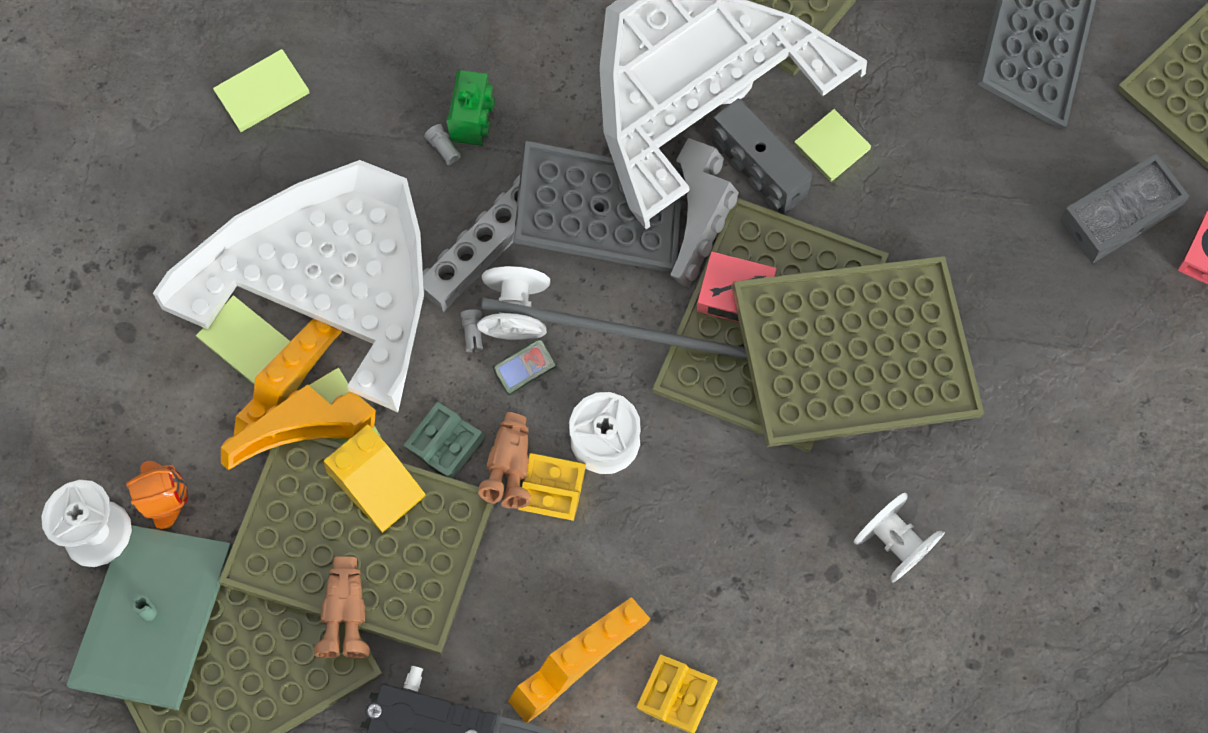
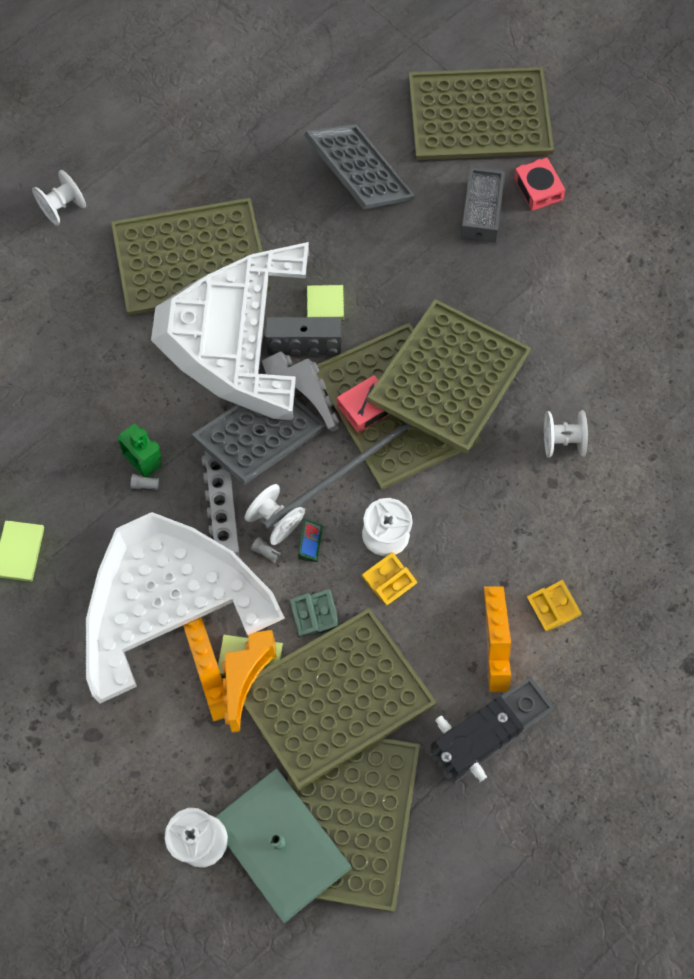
camera: 55 degrees left, 5 degrees down
(158, 493) = (210, 786): orange piece -> none
(243, 339) = (162, 672): yellowish green tile -> none
(343, 605) = (372, 729): nougat piece -> none
(373, 478) = (310, 660): yellow slope -> none
(511, 459) = (358, 588): nougat piece -> none

